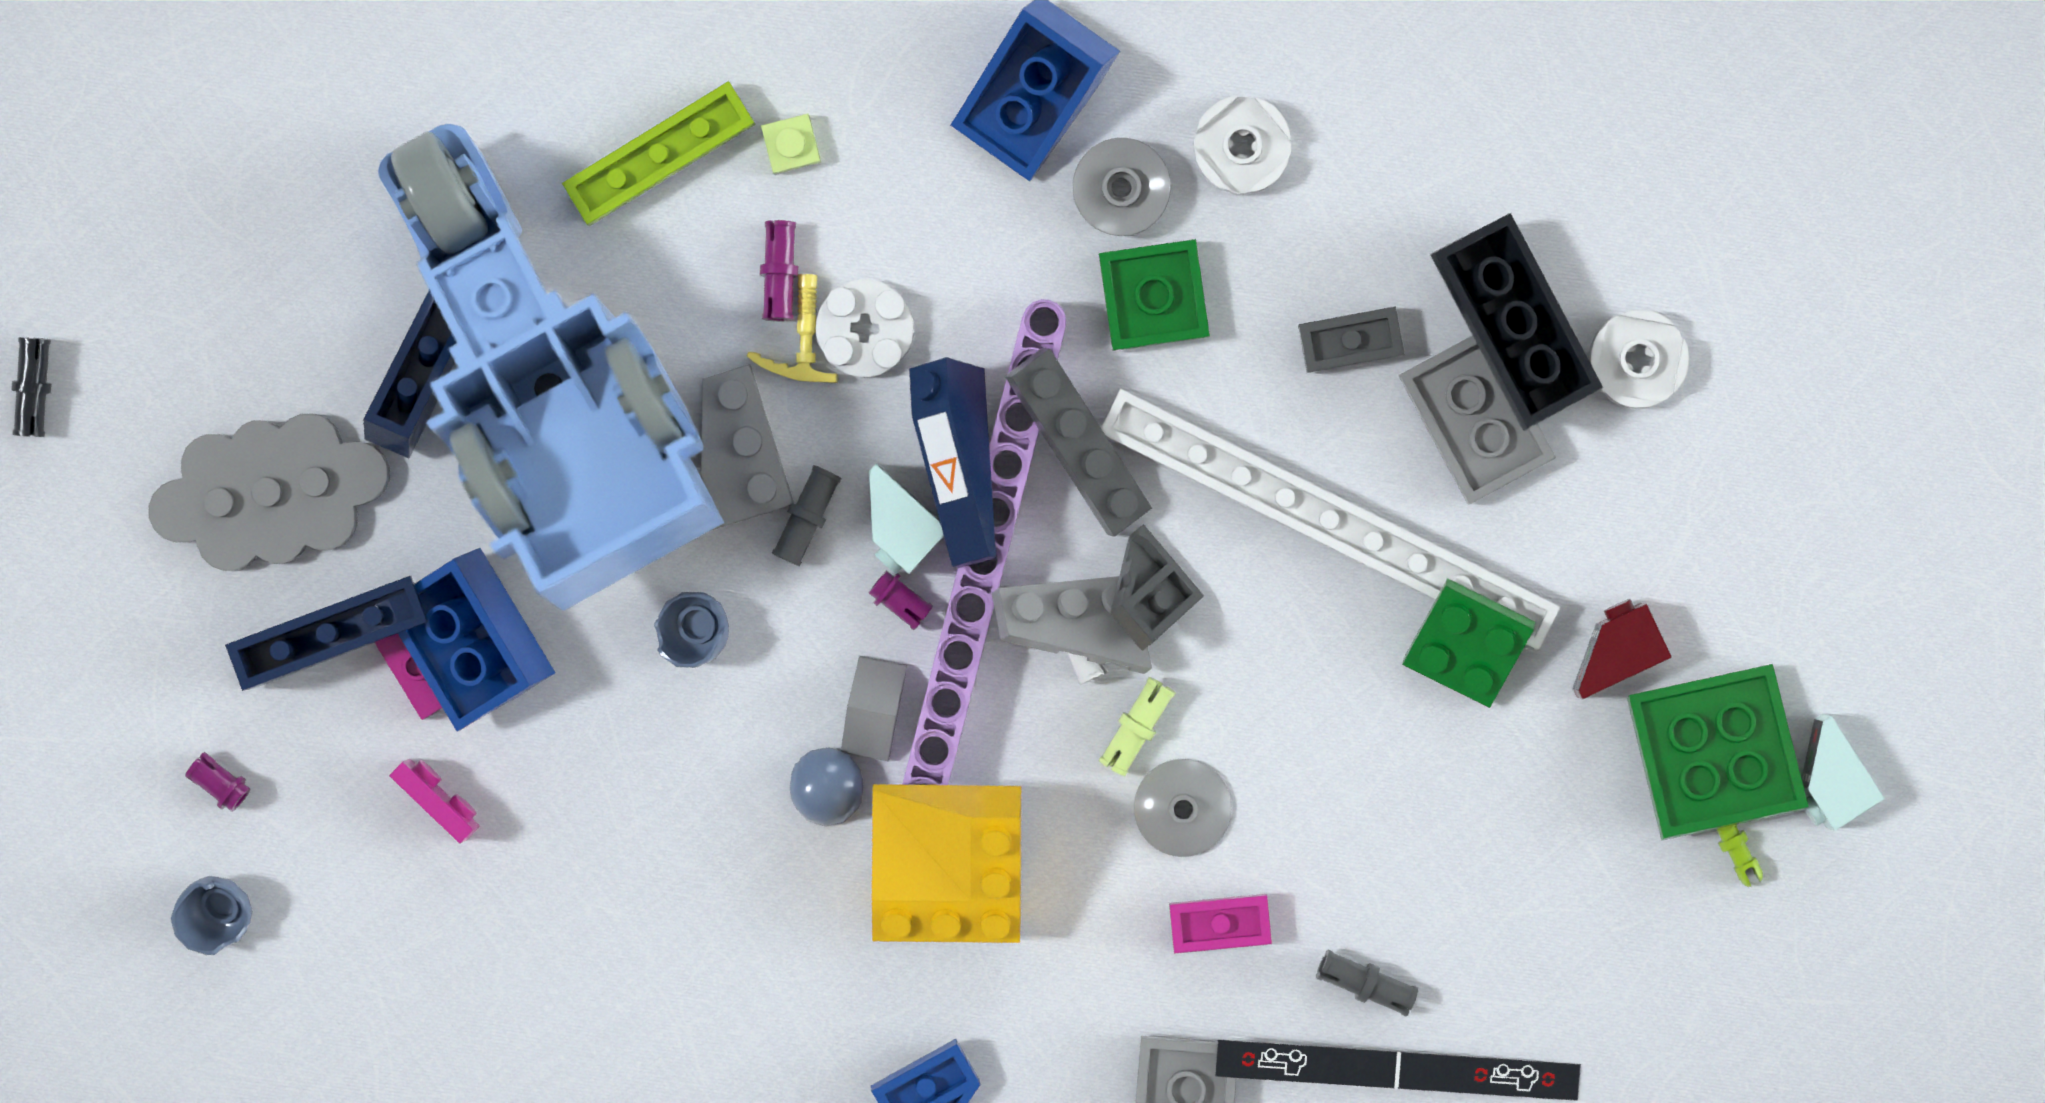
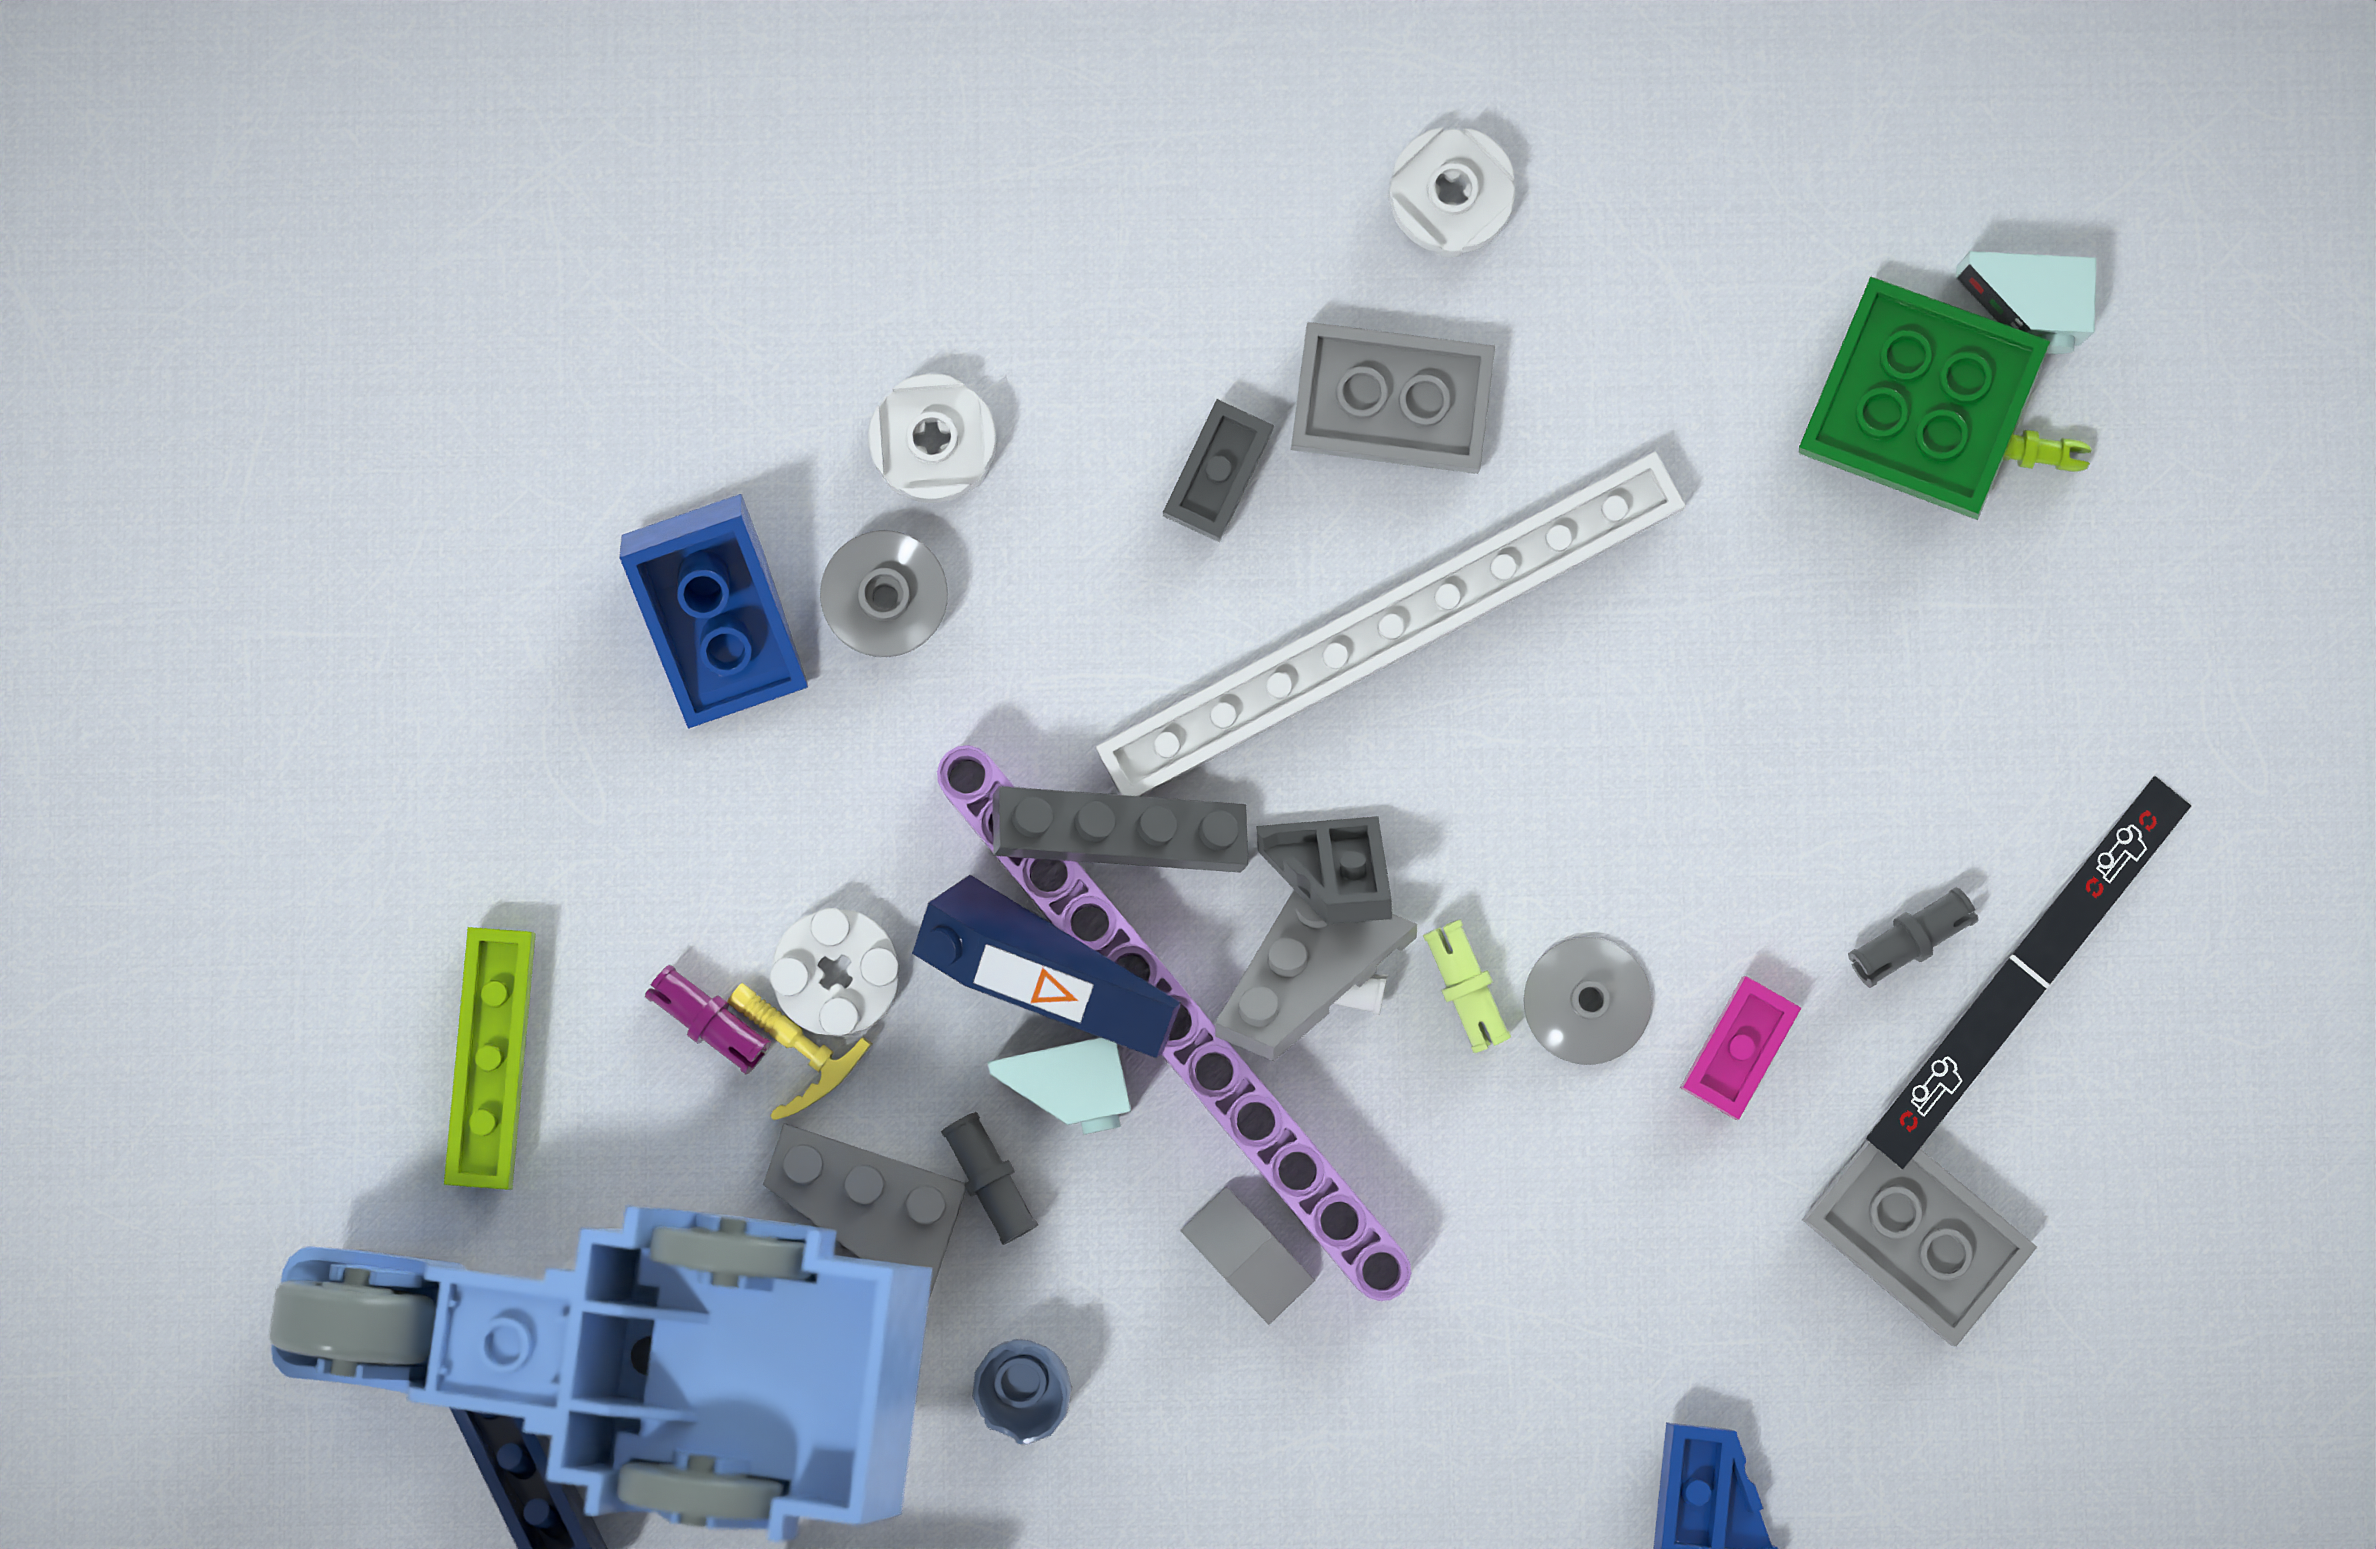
camera: 60 degrees left, 5 degrees down
(791, 144) = (584, 910): yellowish green plate -> none
(826, 786) = (1295, 1367): sand blue hair -> none
(900, 599) = (1151, 1142): magenta pin -> none
(946, 863) = (1472, 1293): yellow slope -> none
(1154, 295) = (1022, 641): green plate -> none
(1468, 643) = (1626, 573): green plate -> none
(1516, 321) = (1324, 279): black slope -> none
(1620, 648) = (1743, 421): dark red slope -> none

